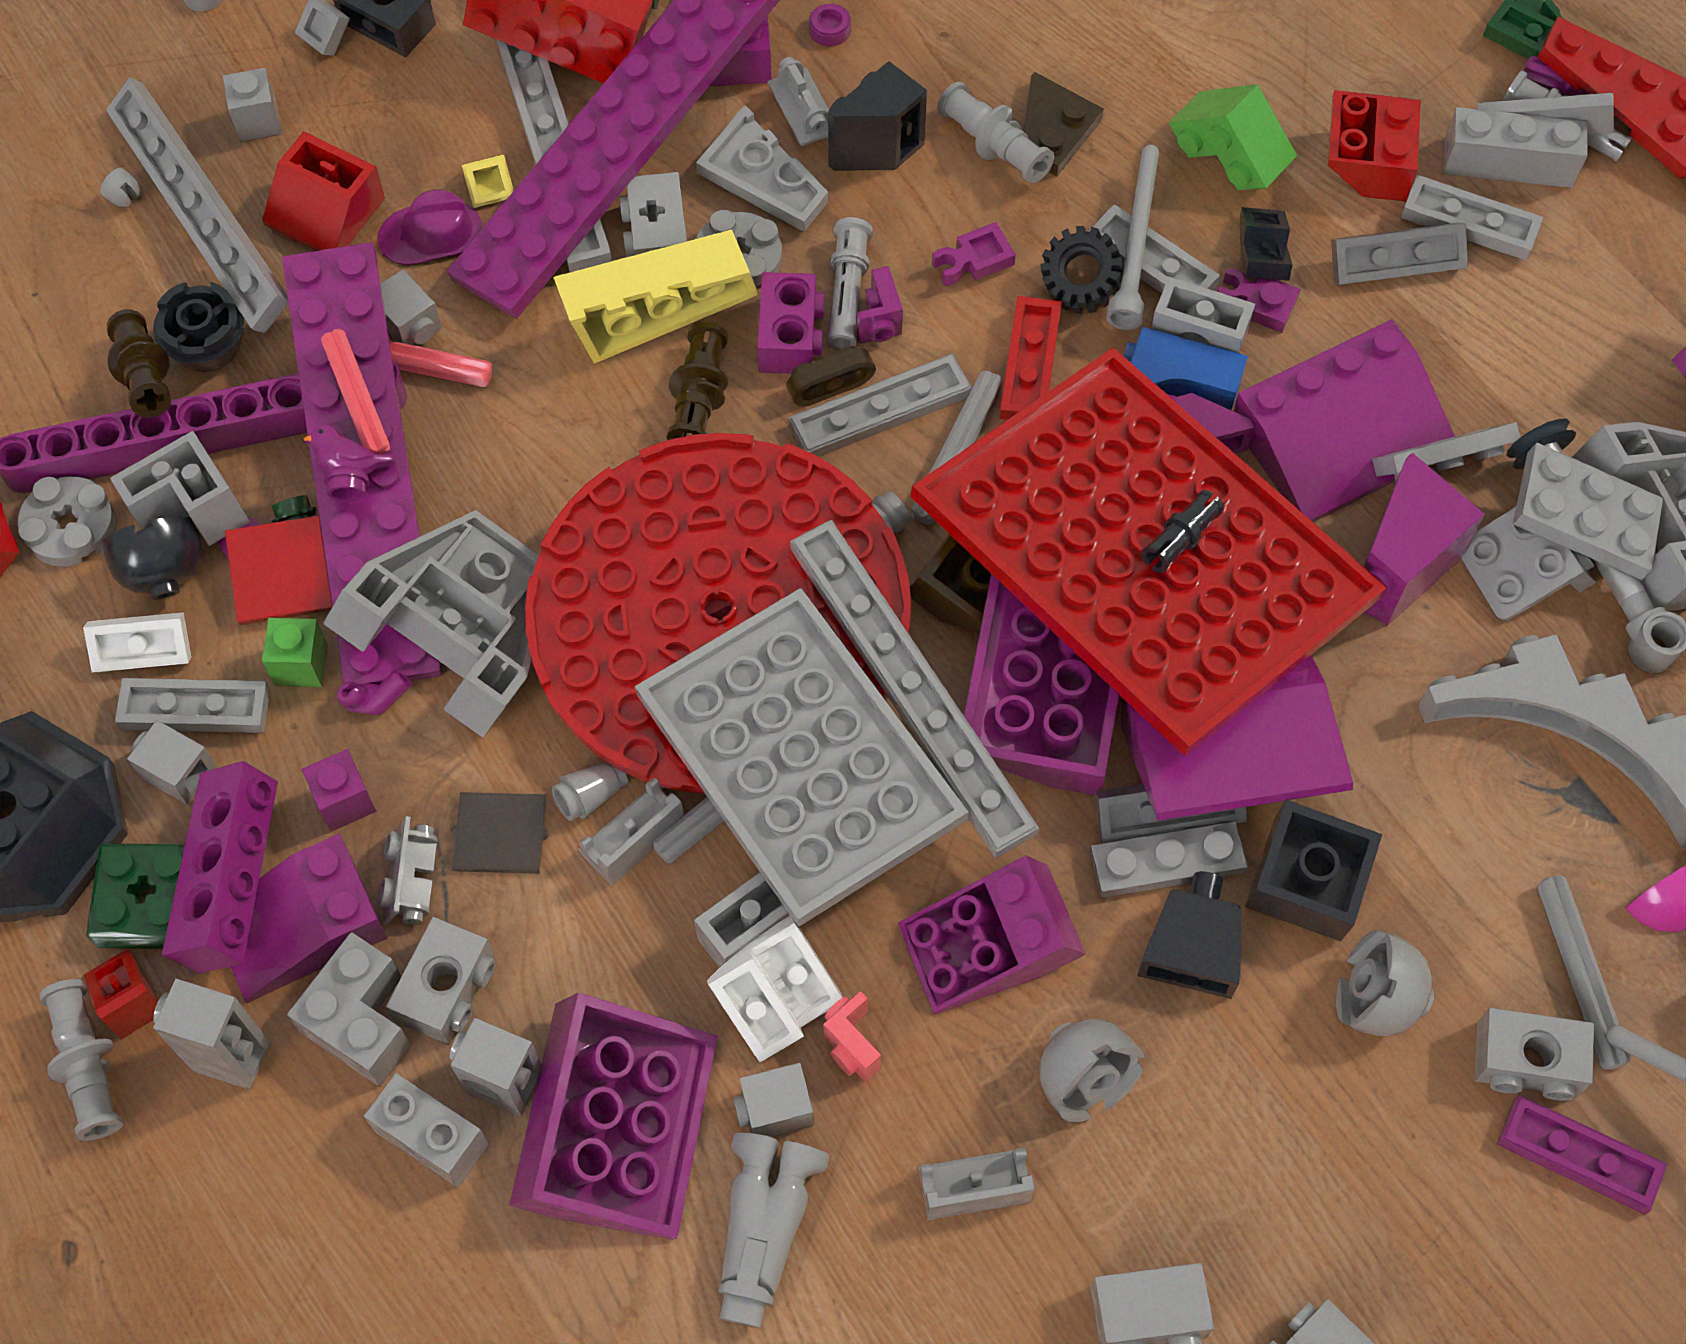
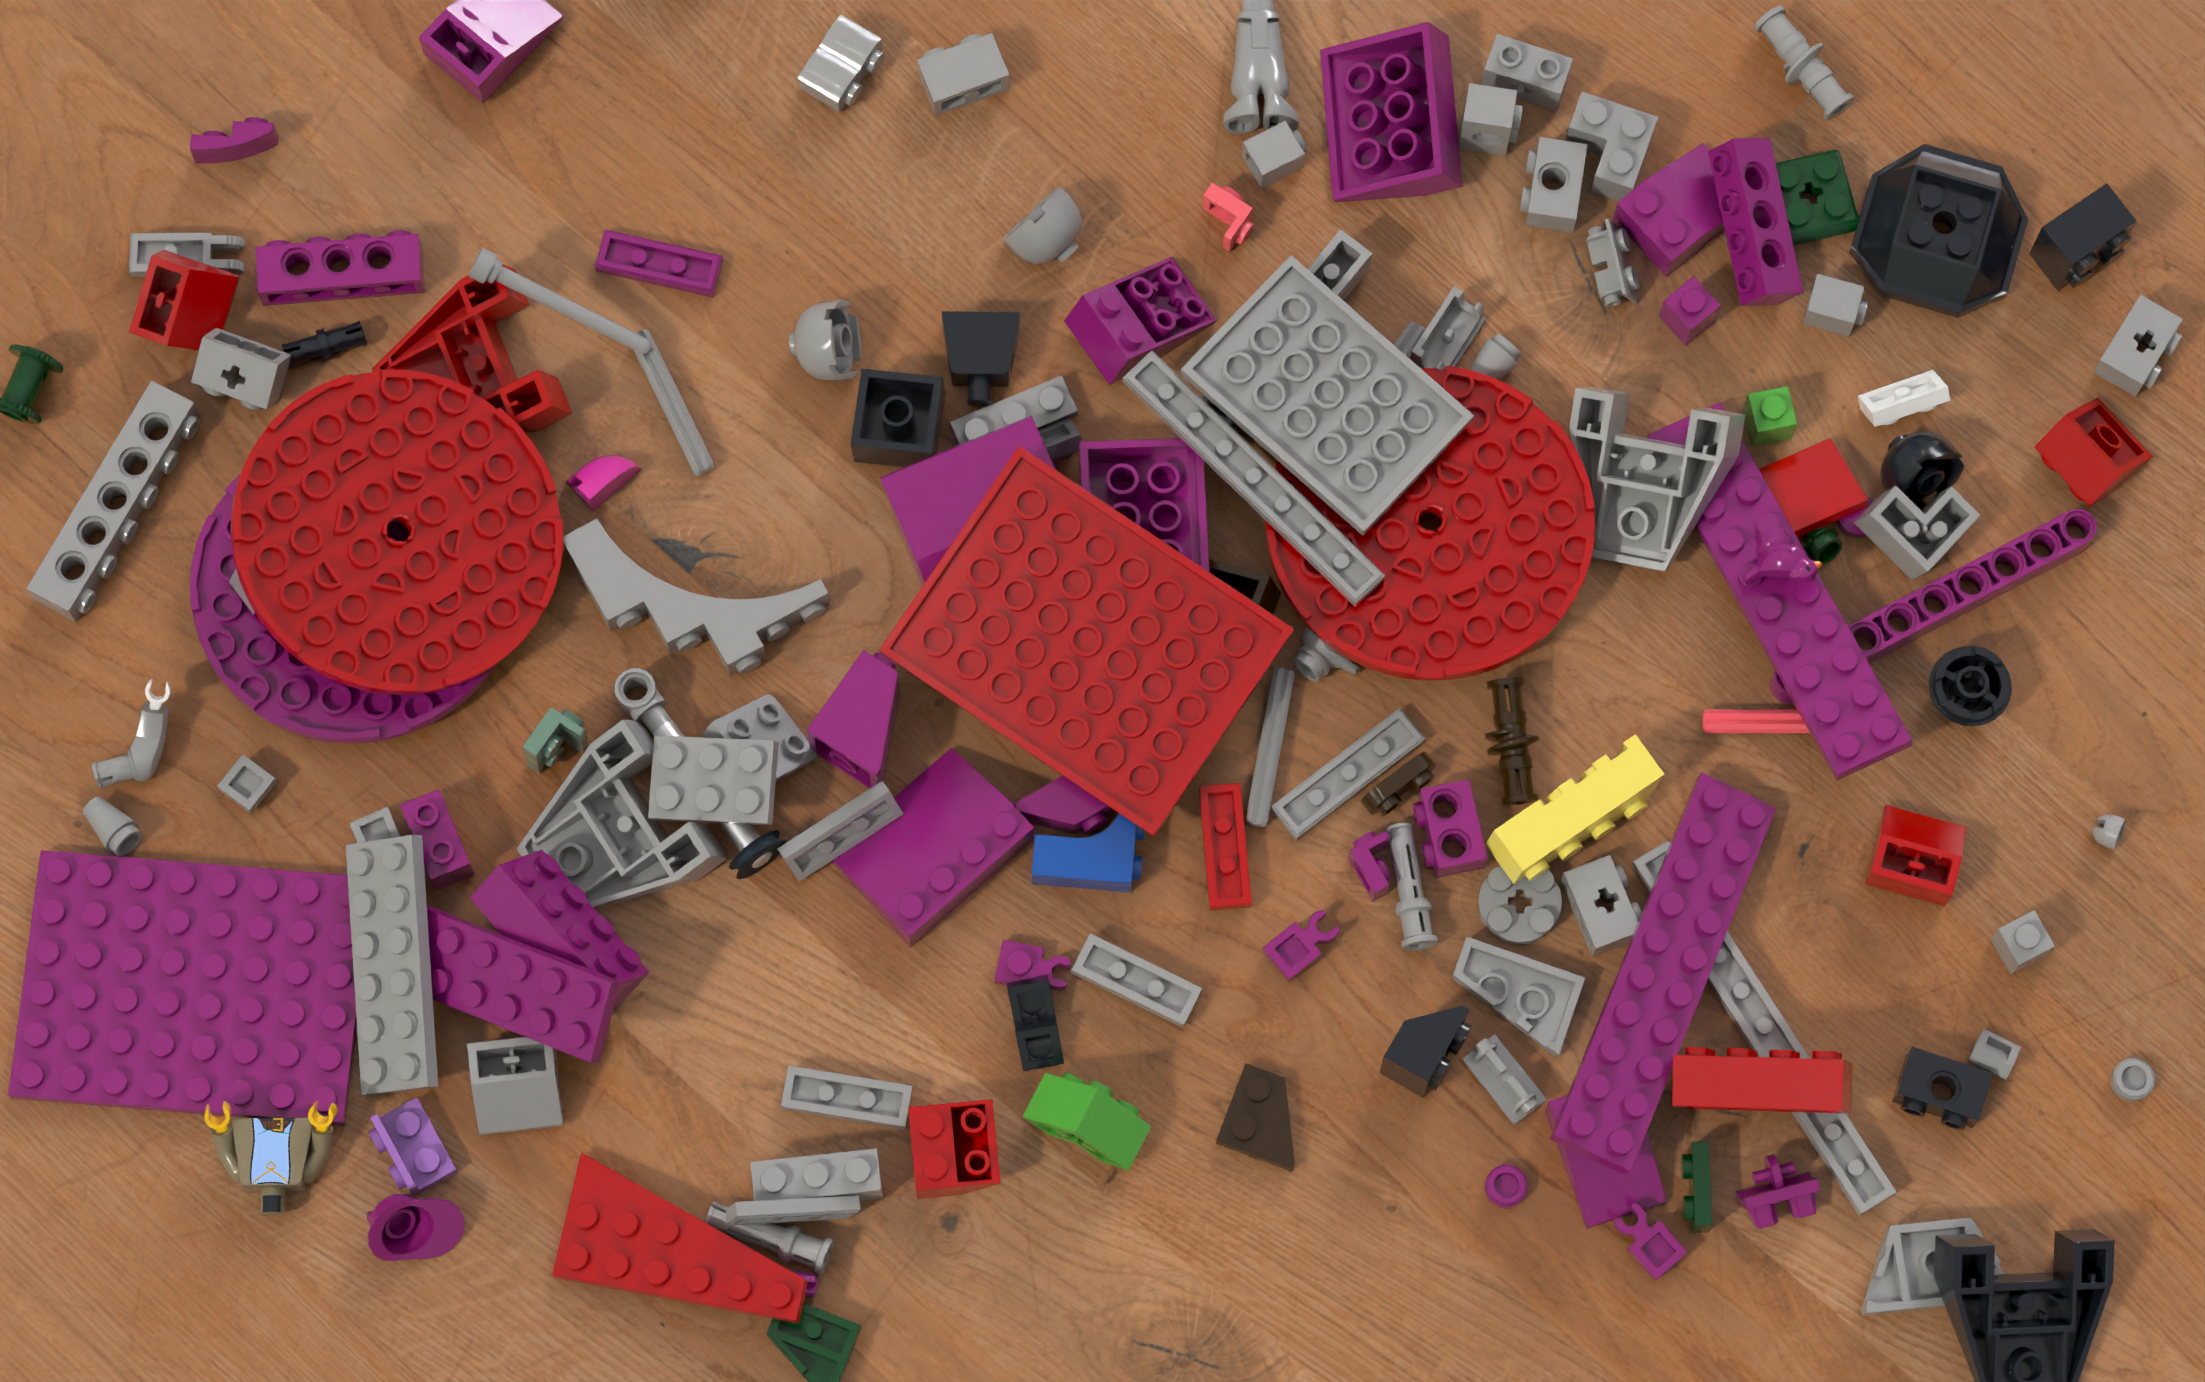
camera: 165 degrees right, 10 degrees up
(51, 501) = (2030, 481): light grey plate -> none
(121, 994) = (1797, 120): red slope -> none
(138, 363) = (2008, 637): dark brown piece -> none
(193, 705) = (1837, 358): light grey plate -> none
(198, 206) = (2028, 814): light grey plate -> none
(211, 1033) = (1706, 82): light grey brick -> none
(355, 392) = (1797, 624): coral axle -> none
(373, 698) = (1693, 399): magenta arm -> none
(409, 310) = (1795, 759): light grey brick -> none
(429, 229) = (1810, 862): magenta piece -> none
(488, 181) = (1776, 927): light yellow slope -> none
(499, 833) = (1553, 319): clear smoke piece -> none
(774, 988) = (1298, 227): white slope -> none
(976, 1184) = (1110, 133): light grey hinge -> none
(995, 132) = (1313, 1078): light grey piece -> none
(1068, 248) = (1203, 922): black tyre -> none
(1126, 306) = (1150, 910): light grey piece -> none
(1182, 531) = (1059, 642): black pin -> none
(1202, 315) = (1079, 906): light grey brick -> none
(1399, 253) = (909, 1037): flat silver plate -> none
(1561, 1042) = (723, 335): light grey brick -> none

